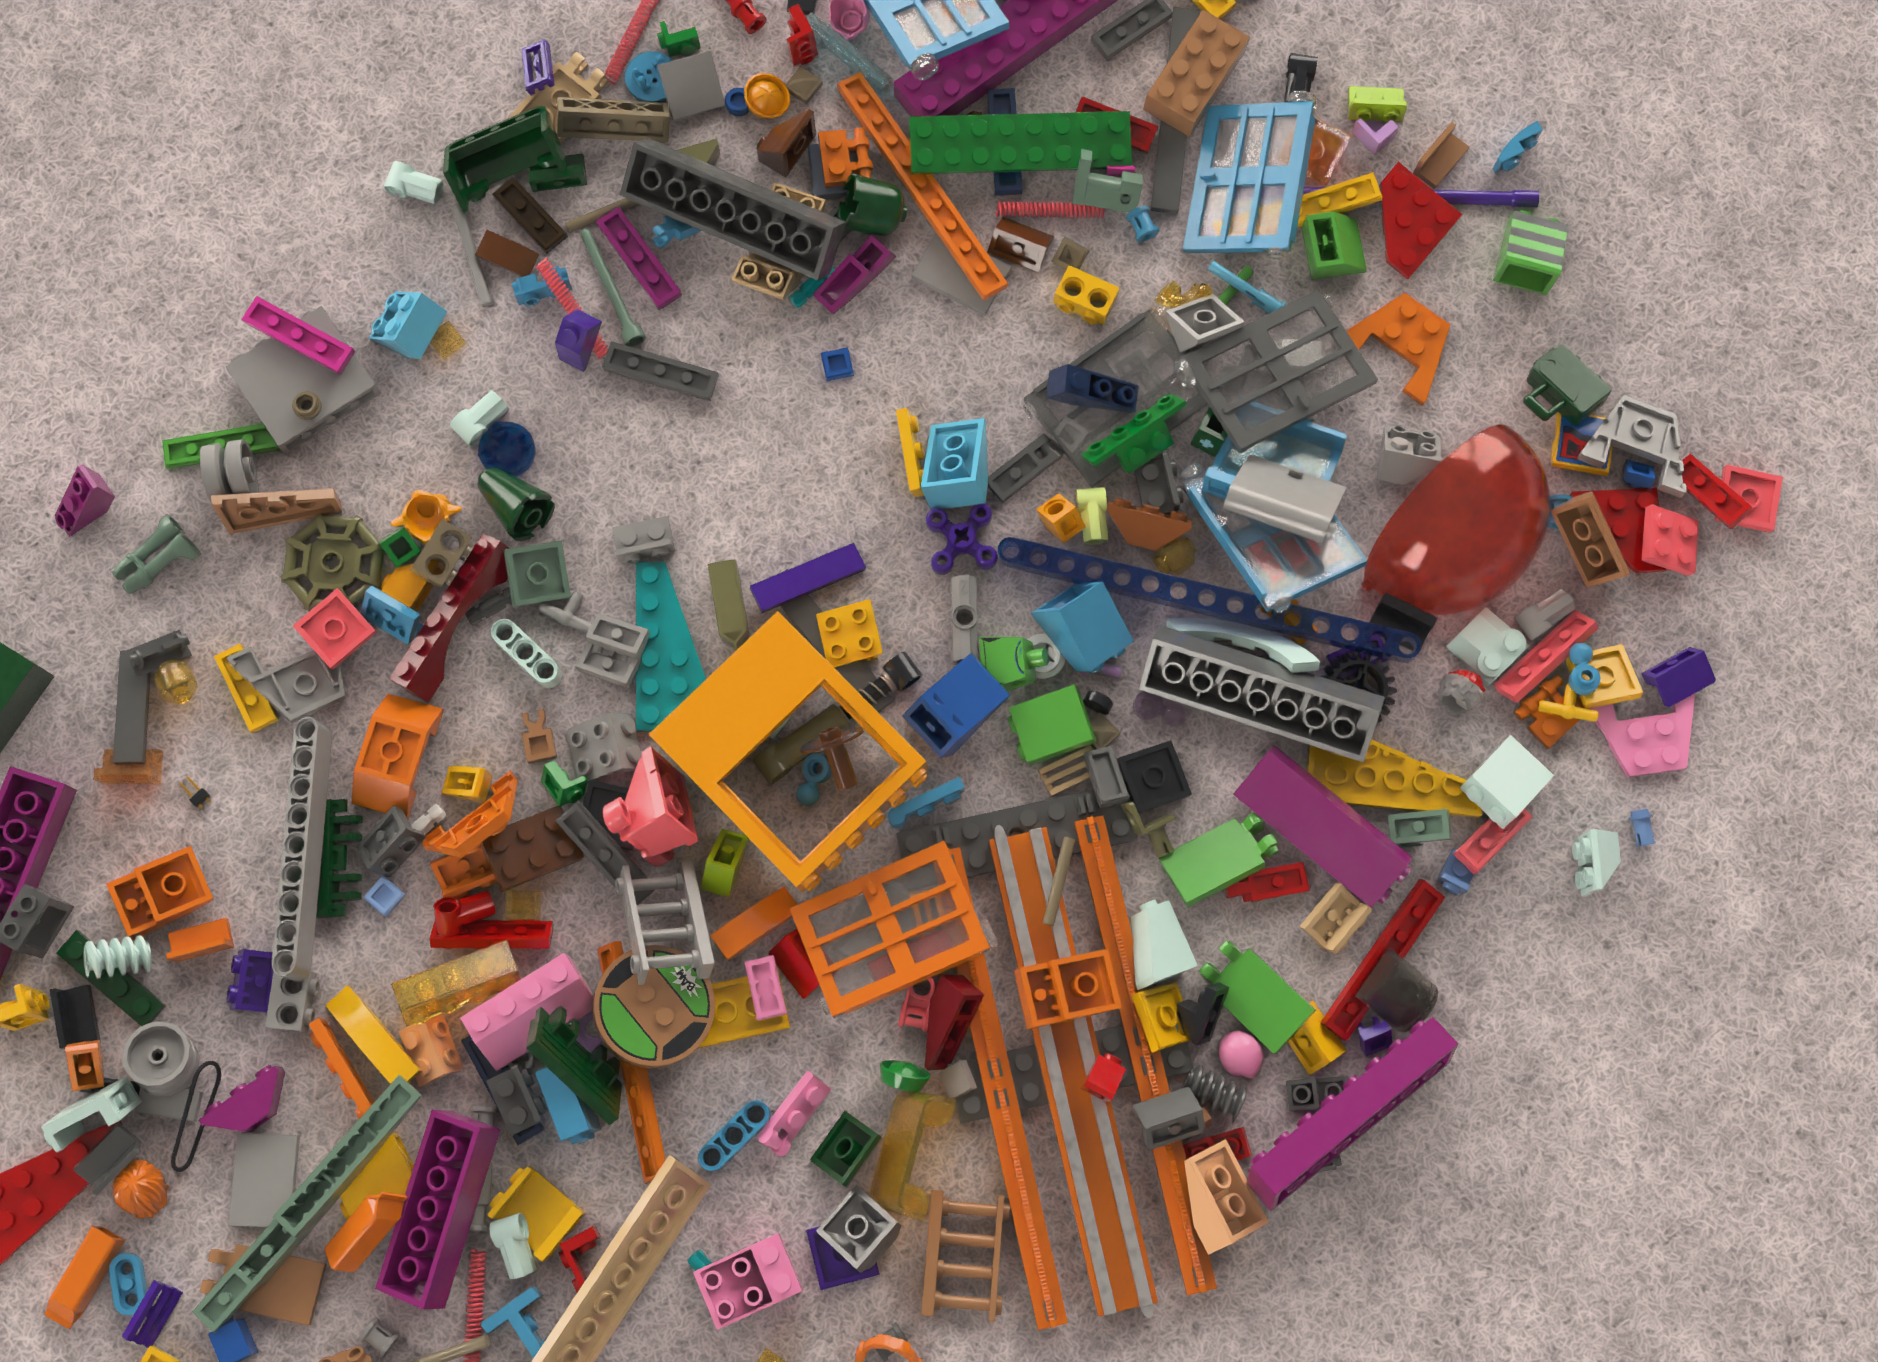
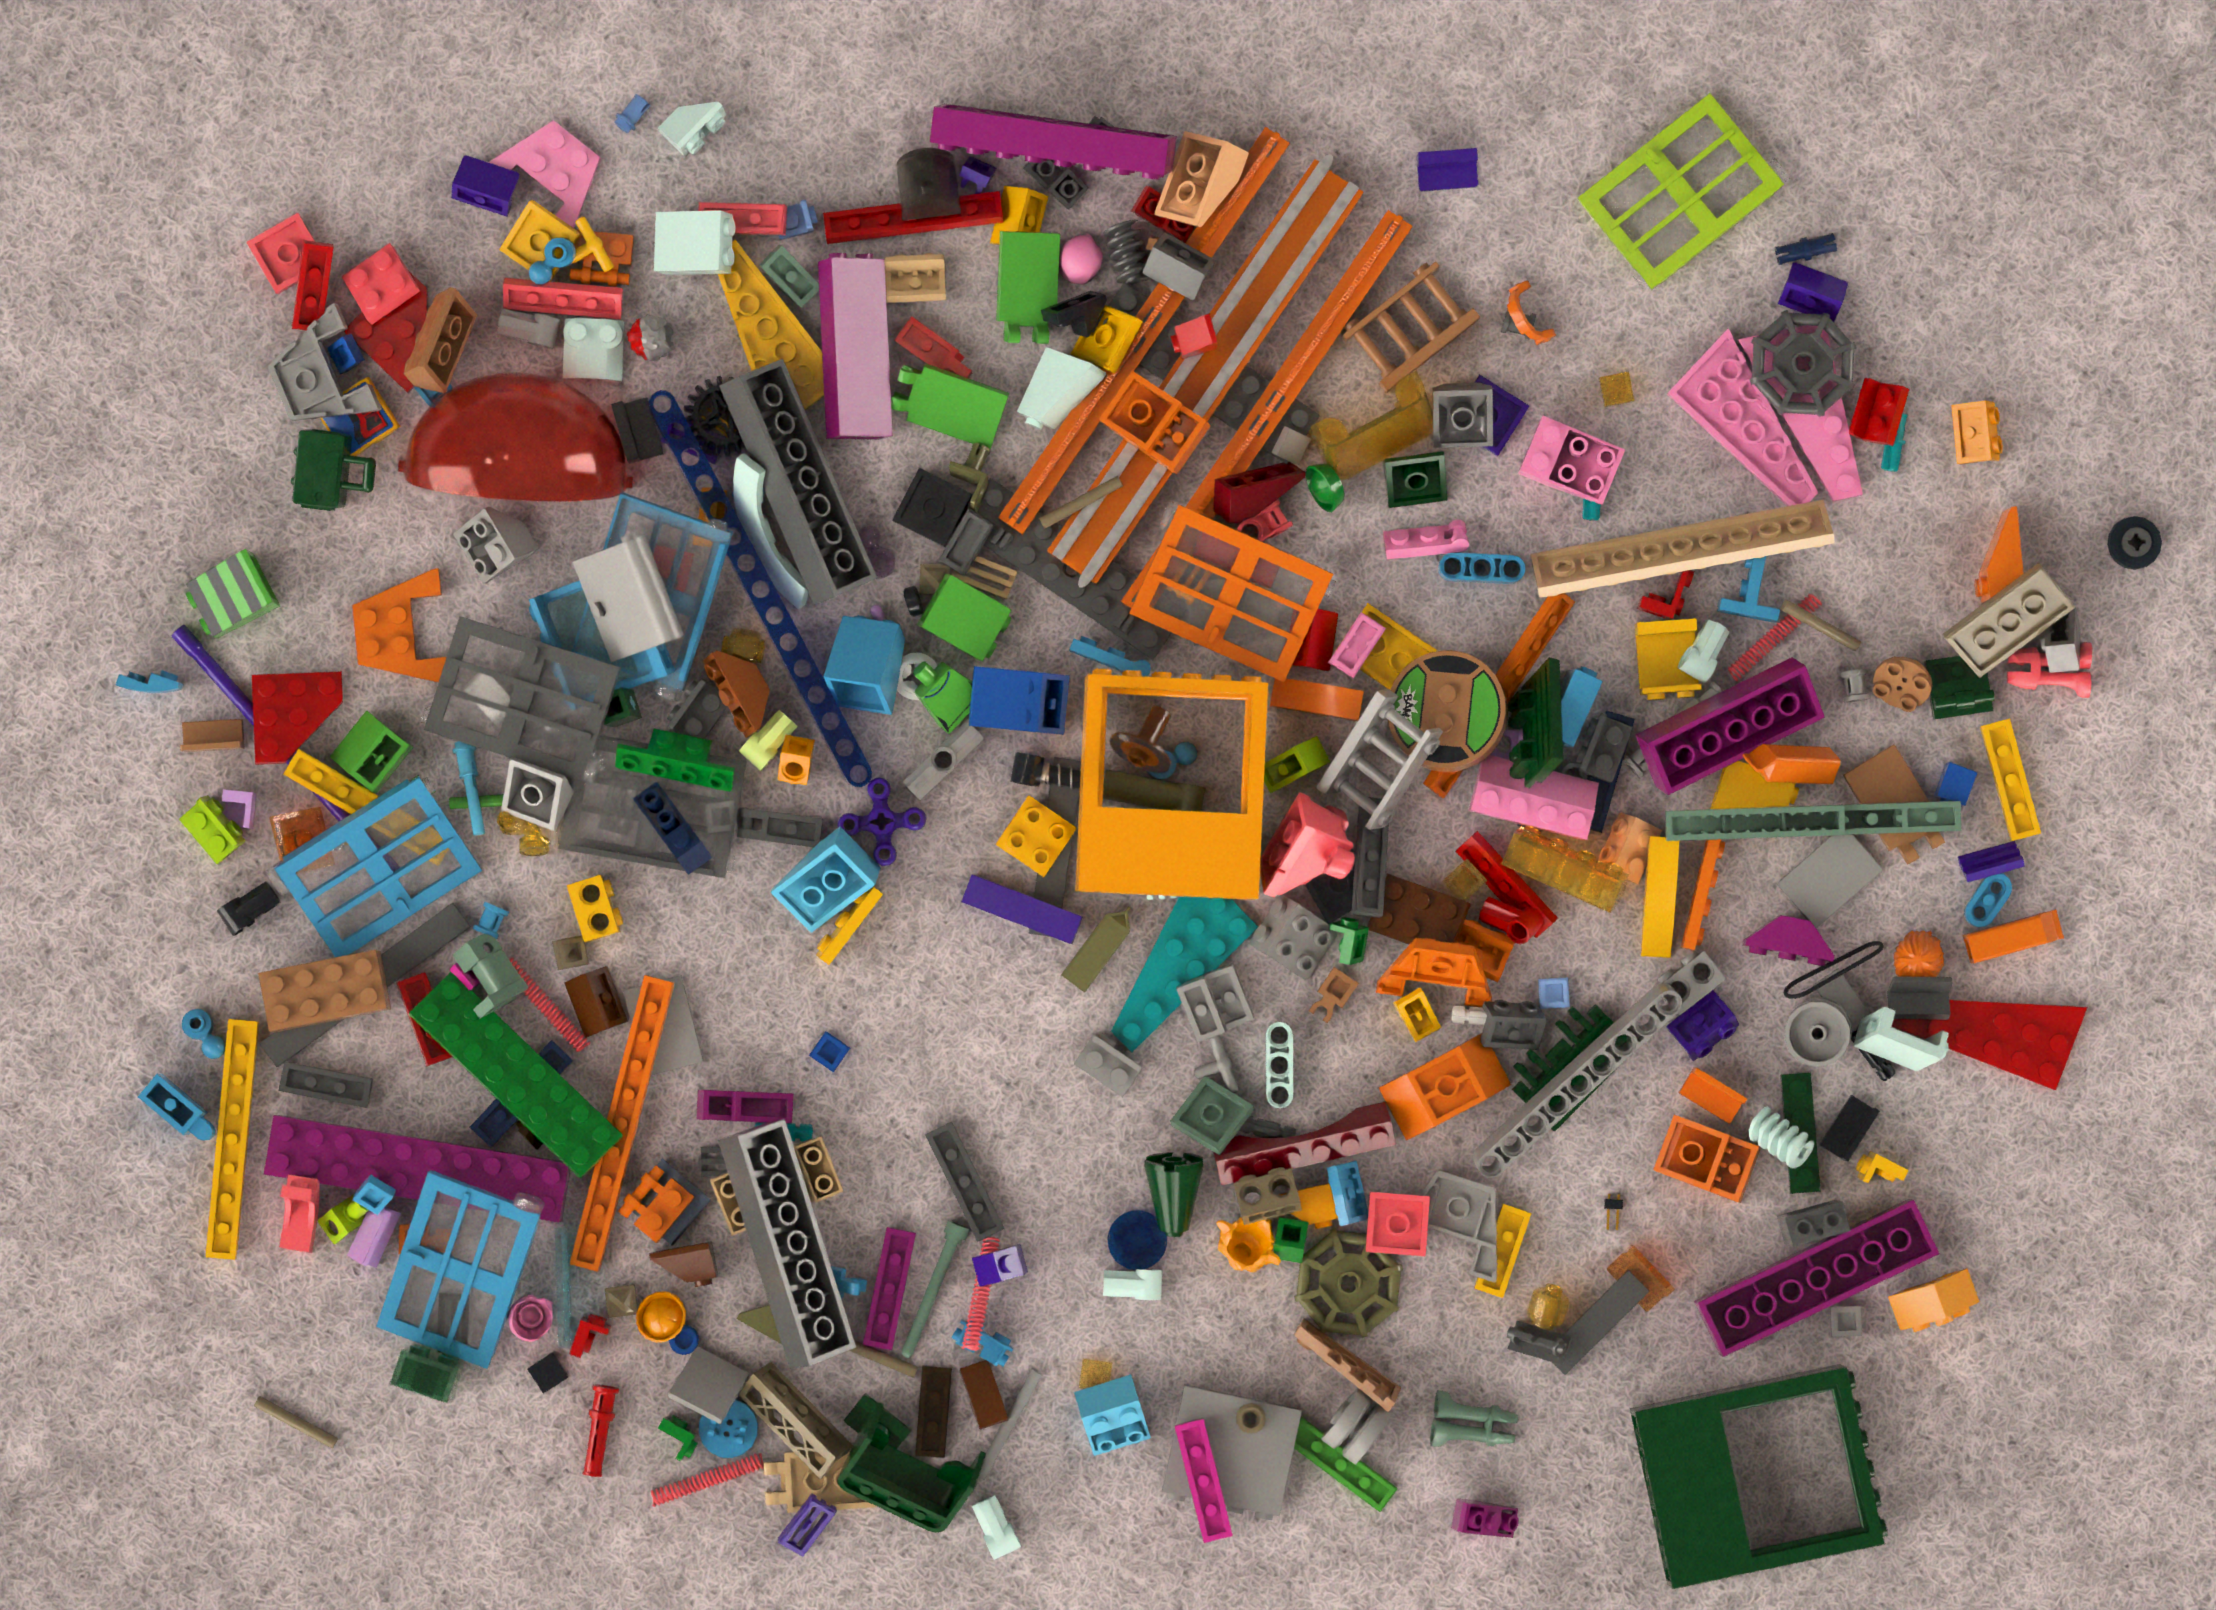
camera: 135 degrees left, 10 degrees up
(85, 1065) = (1872, 1082): orange slope -> none
(872, 206) = (680, 1142): dark green cylinder -> none

